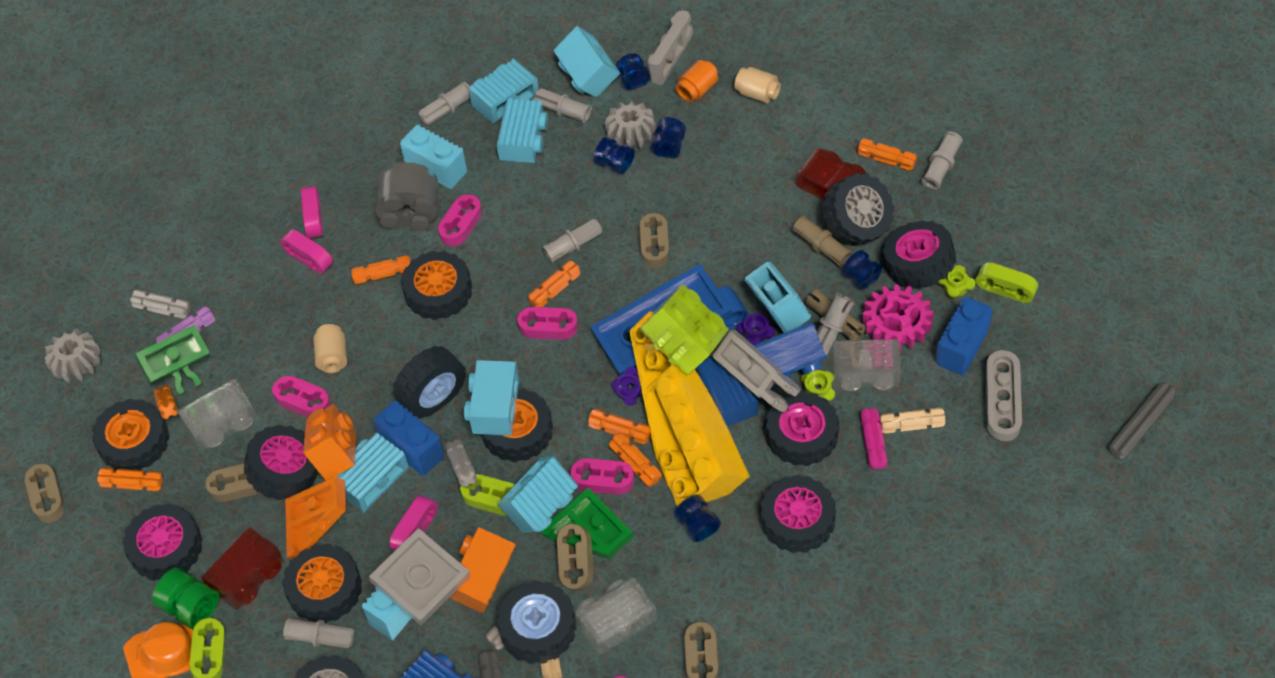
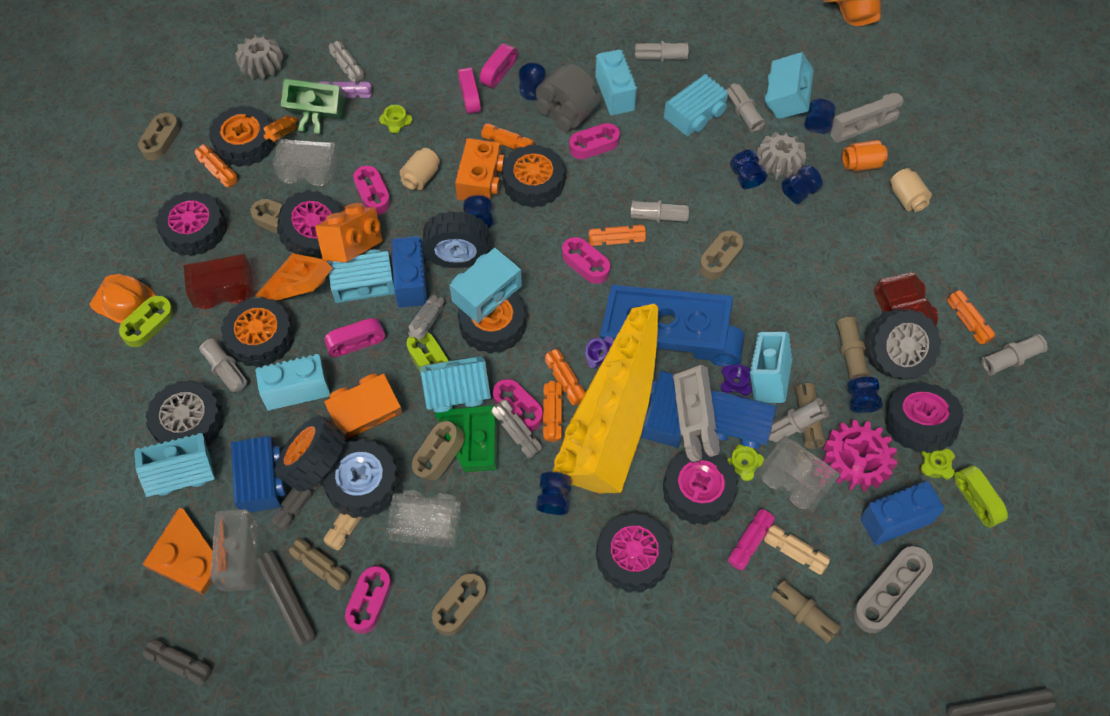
camera: 35 degrees right, 5 degrees up
(185, 597) = (164, 271): green wheel -> none
(257, 315) = (395, 112): none -> lime plate
(357, 205) = (530, 77): none -> clear blue wheel
(386, 313) = (479, 169): none -> orange brick
(415, 343) = (480, 207): none -> clear blue wheel
(419, 576) = (304, 378): light grey plate -> none
(479, 632) = (310, 453): none -> black wheel
(506, 82) = (718, 63): medium azure brick -> none
(622, 492) = (516, 428): none -> axle
(684, 329) = (665, 337): lime hinge -> none
(958, 458) = (806, 611): none -> dark tan pin

